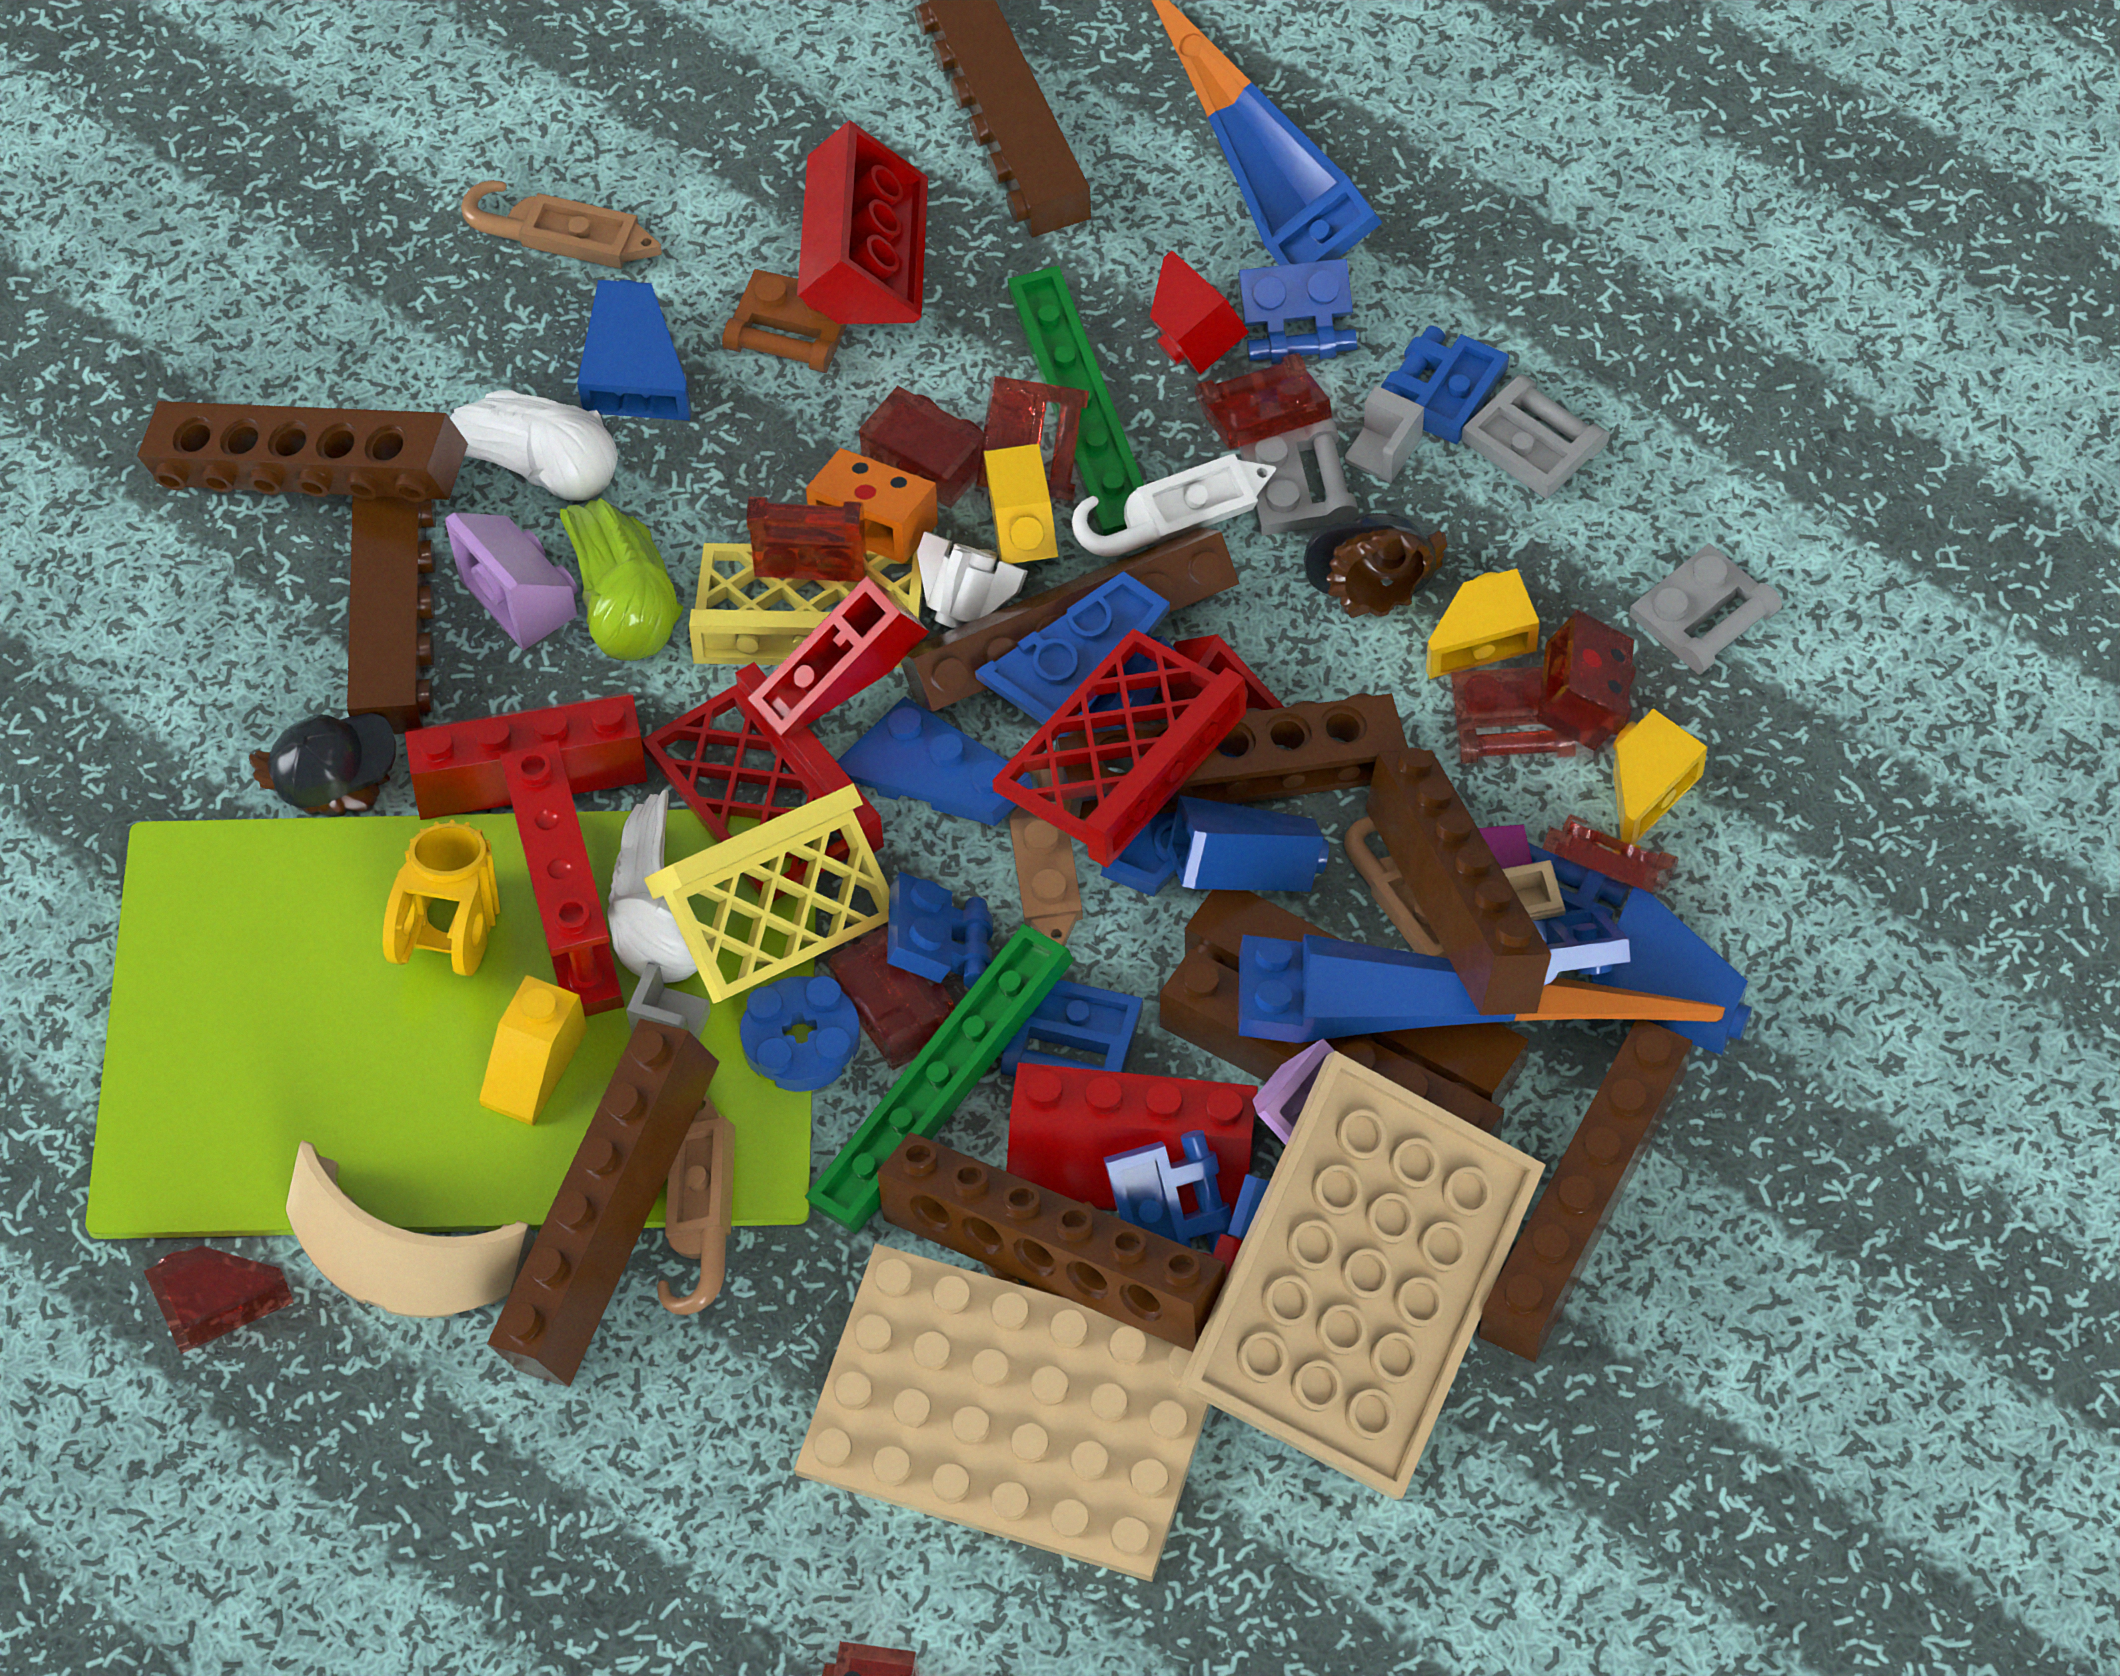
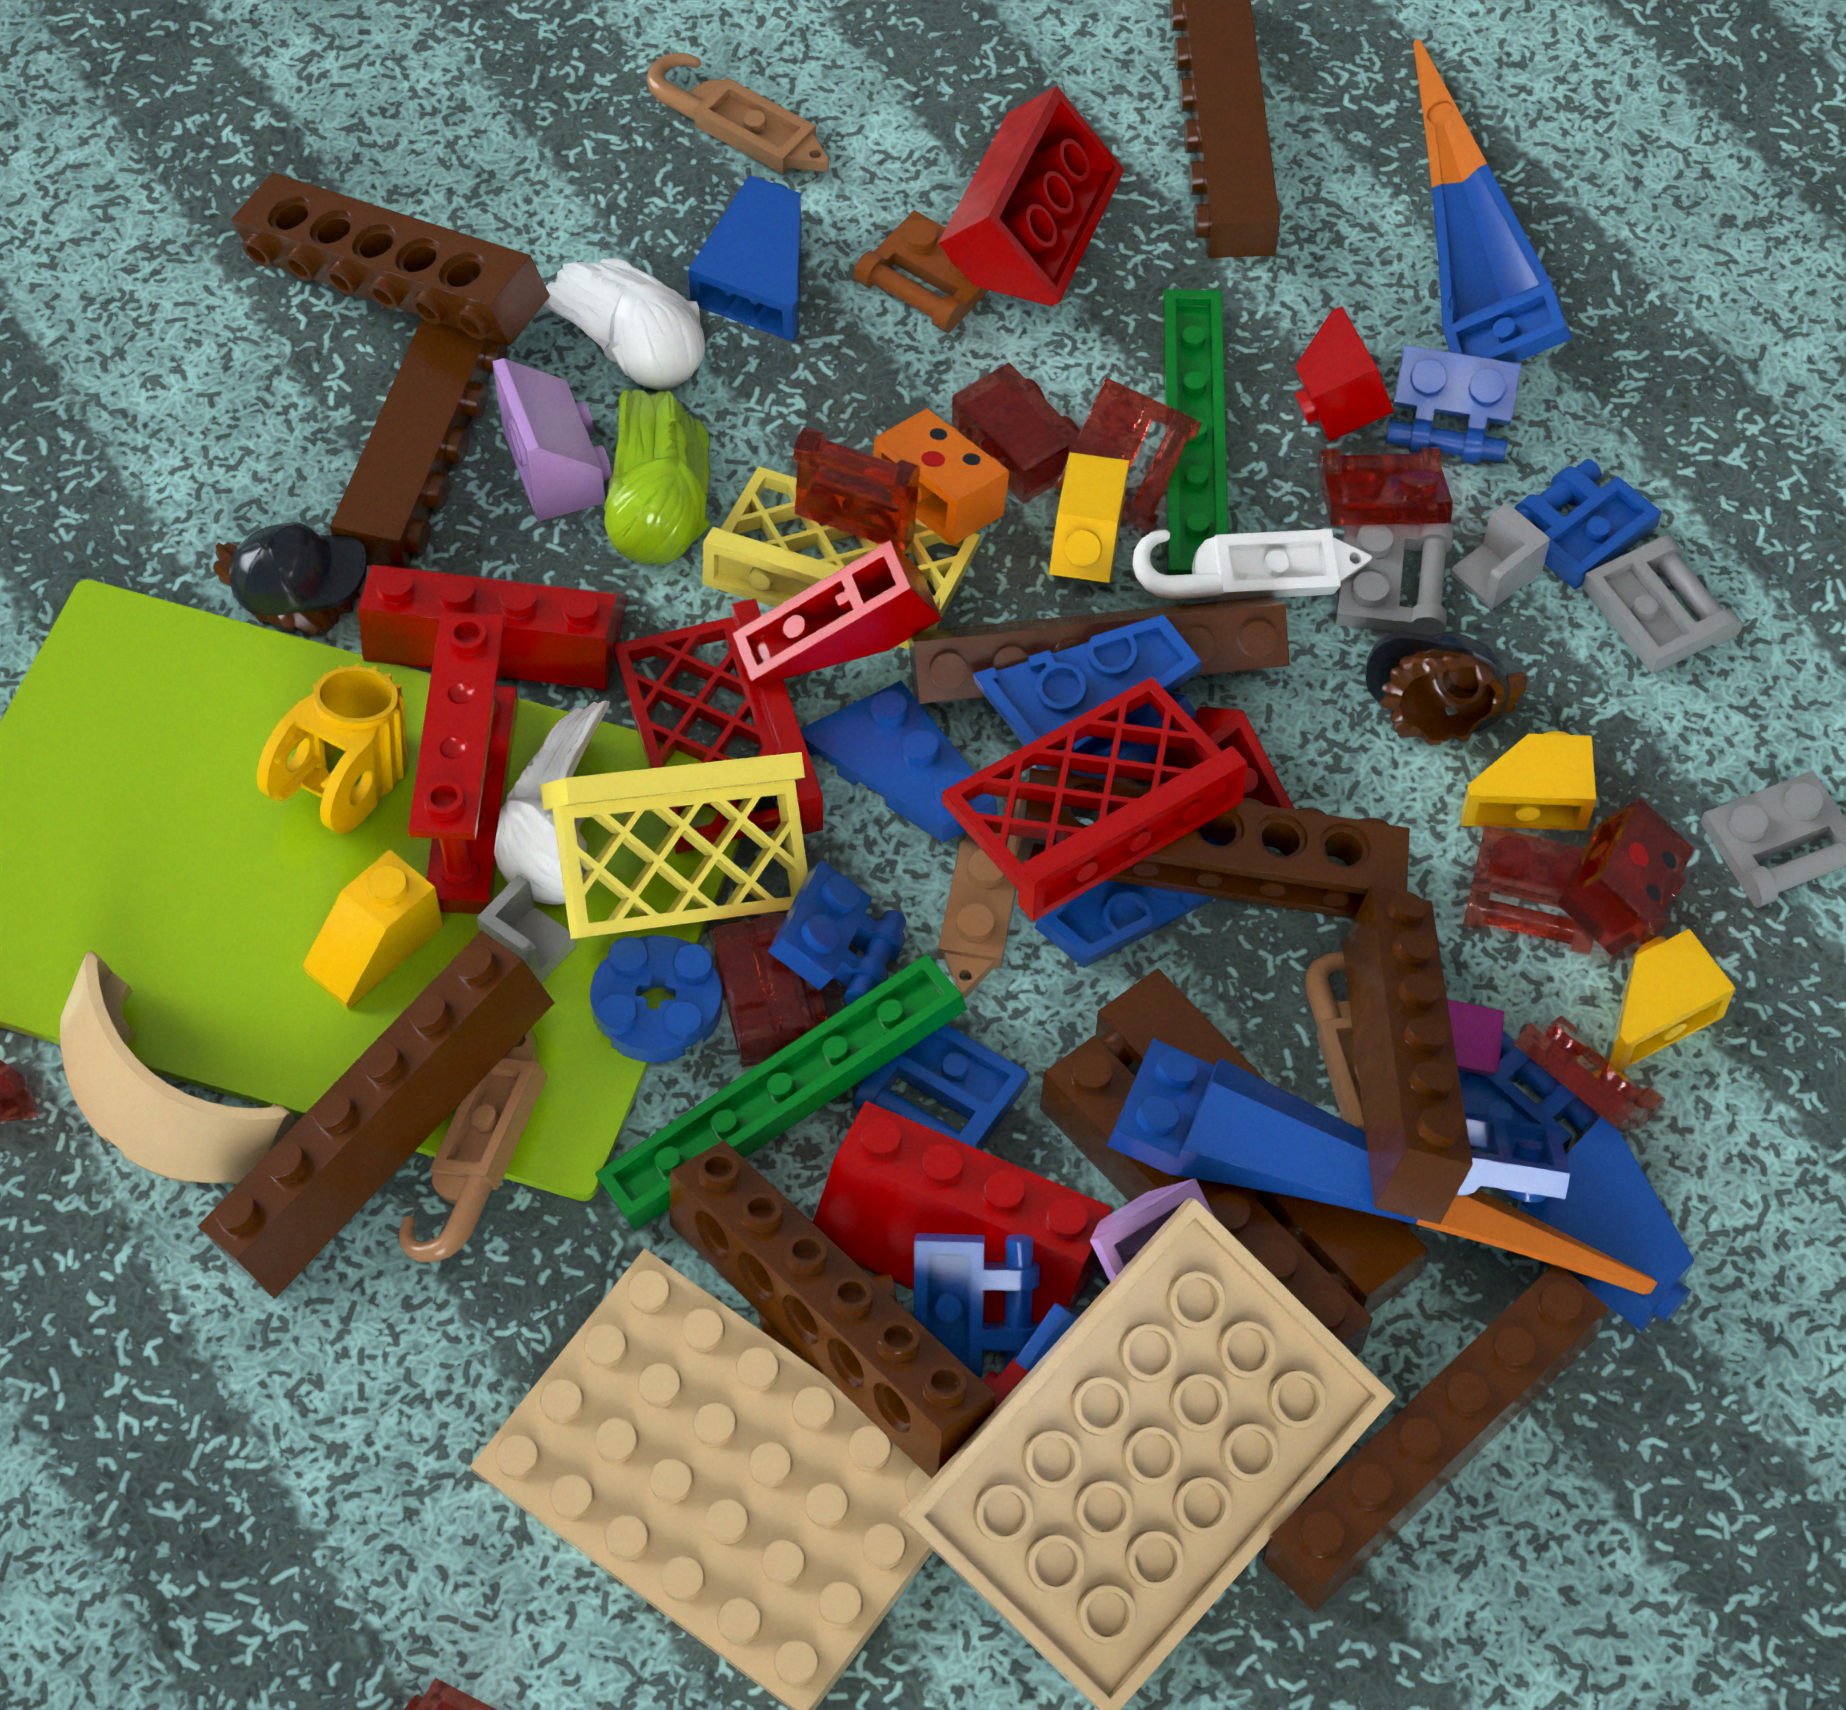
camera: 15 degrees right, 0 degrees up
(964, 583) = (1005, 579): white brick -> none
(1244, 847) = (1192, 945): blue slope -> none
(1537, 889) = (1488, 1087): tan slope -> none

